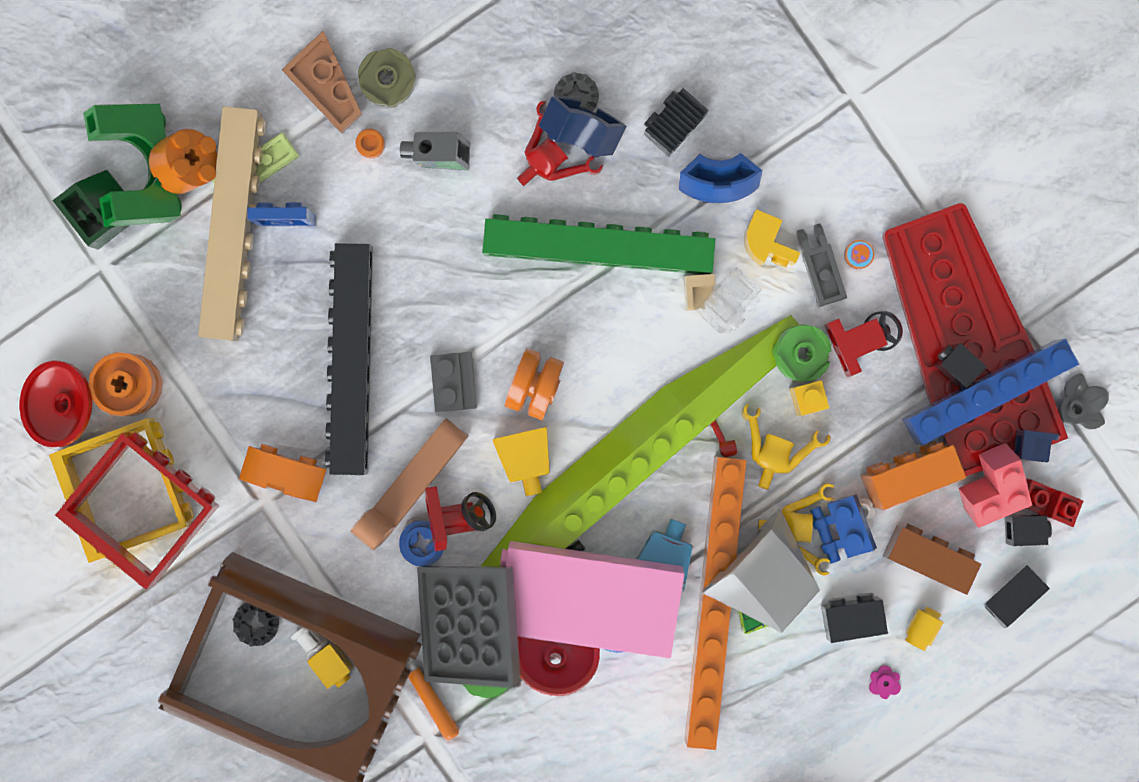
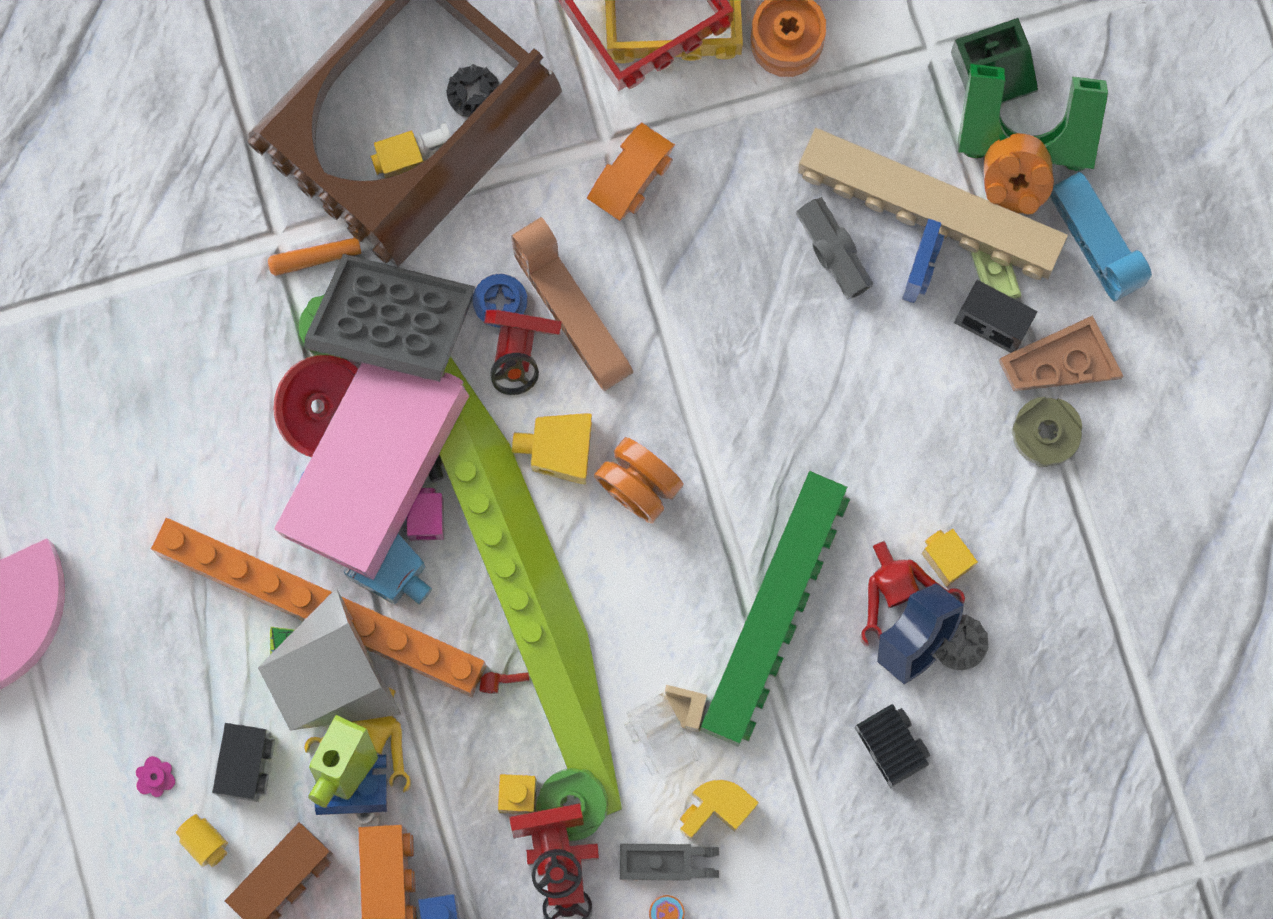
camera: 105 degrees right, 10 degrees down
(216, 82) = (1099, 239): none -> dark azure beam
(292, 291) = (834, 248): none -> dark grey piece
(307, 145) = (995, 316): none -> black hinge
(350, 359) = (735, 287): black brick -> none
(370, 143) = (977, 389): orange tile -> none
(438, 150) = (943, 460): dark grey torso -> none
(453, 381) = (672, 395): dark grey plate -> none
(512, 124) = (948, 556): none -> yellow brick
(615, 542) = (426, 516): none -> dark pink brick
(720, 180) = (805, 773): blue brick -> none
(776, 451) = (467, 735): yellow piece -> none
(836, 541) = (341, 761): none -> lime torso
(847, 355) = (551, 846): none -> red piece

